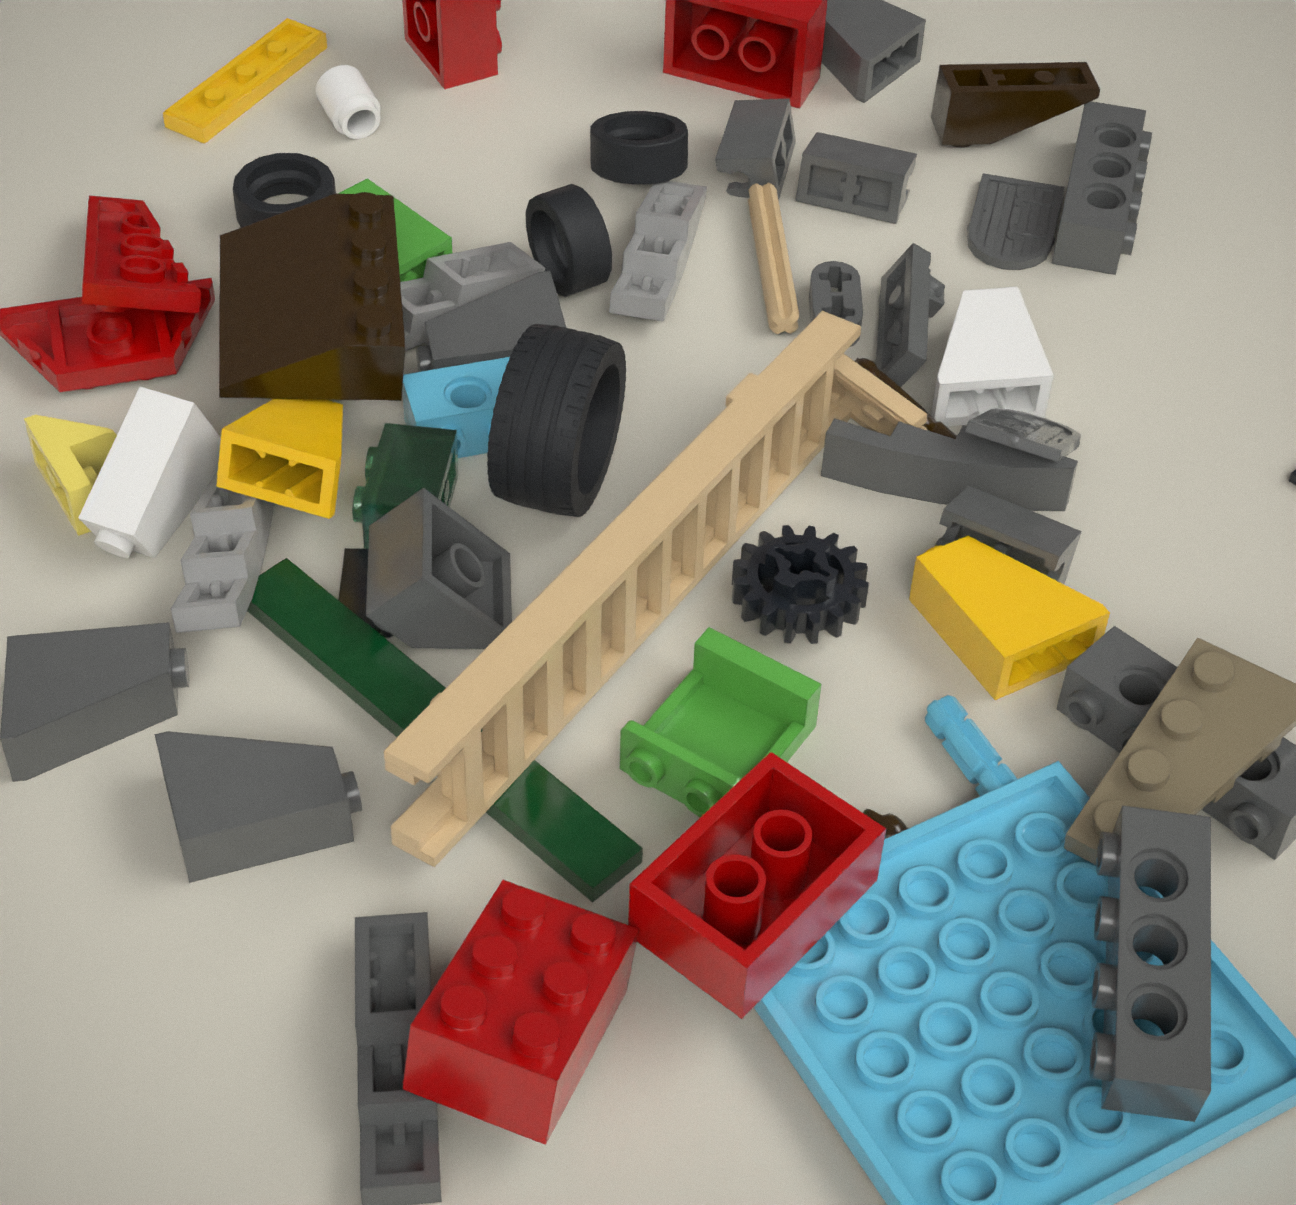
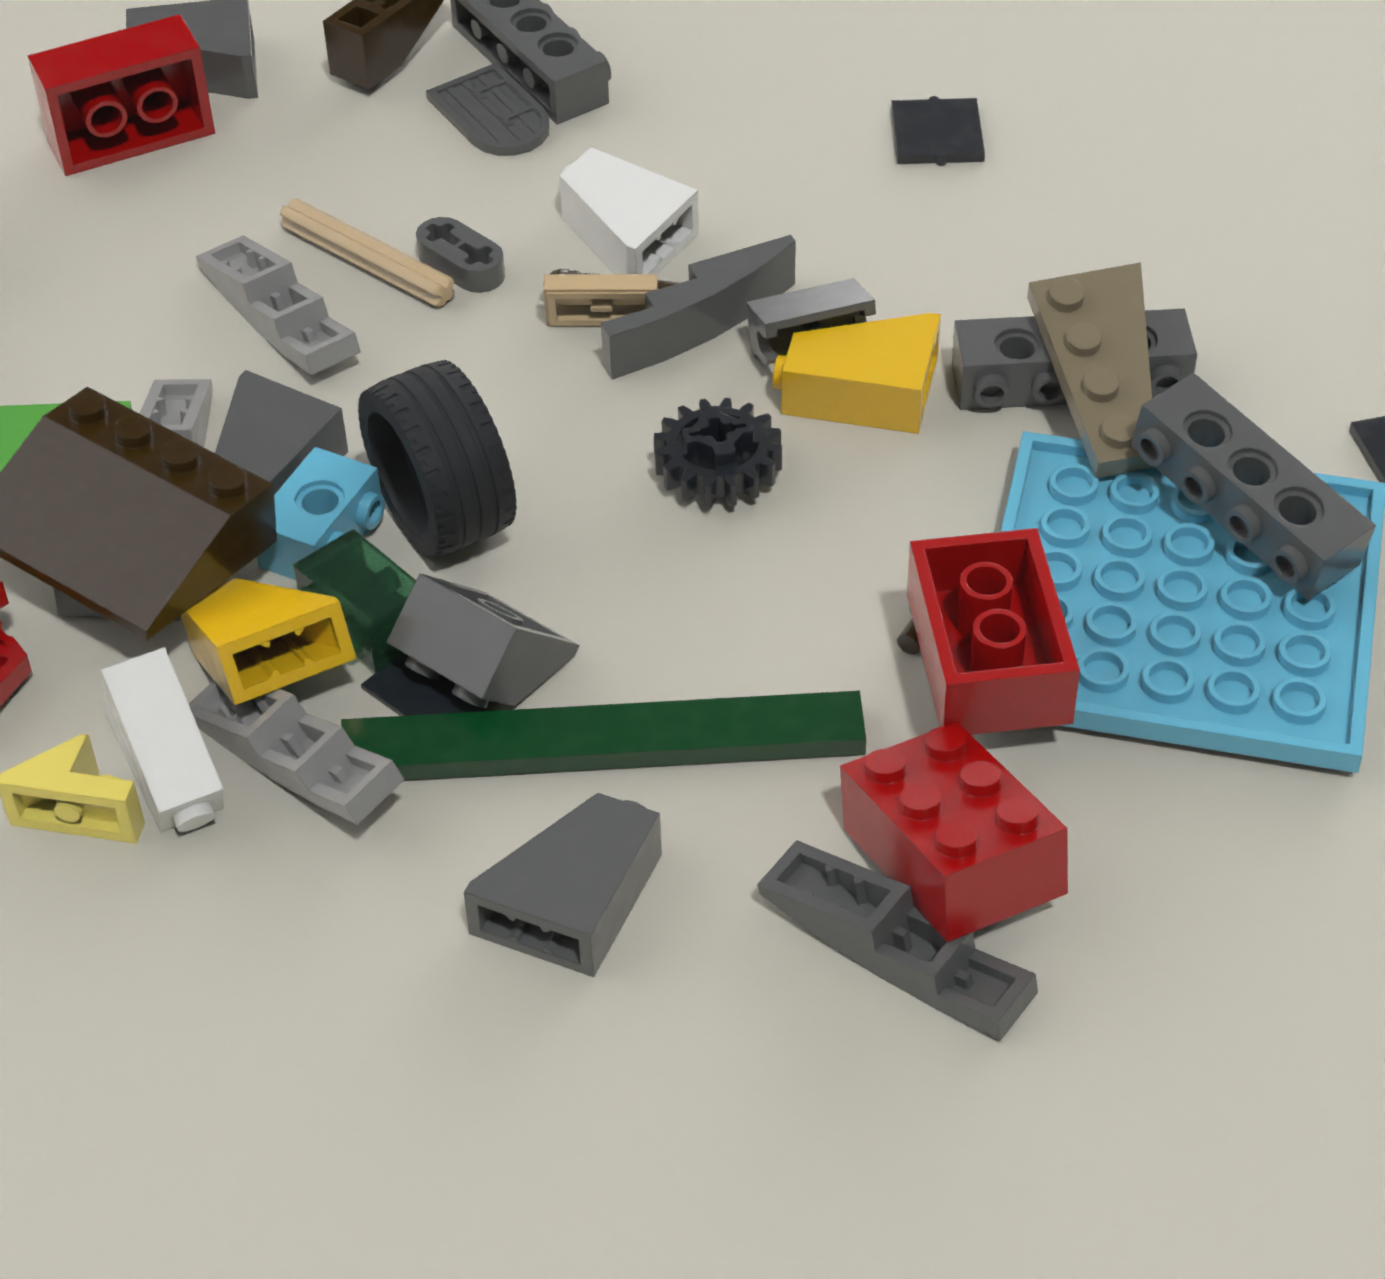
camera: 45 degrees left, 0 degrees up
(85, 692) = (338, 924): dark grey slope -> none
(569, 238) = (231, 310): black tyre -> none
(614, 594) = (642, 536): tan ladder -> none
(639, 147) = (158, 238): black tyre -> none
(720, 723) = (799, 580): bright green panel -> none
(757, 143) = (243, 175): dark grey hinge -> none
(855, 177) = (348, 152): dark grey hinge -> none
(905, 304) = (527, 224): dark grey hinge -> none
(967, 745) = (956, 471): medium azure axle -> none
(1025, 432) = (731, 241): dark grey window -> none

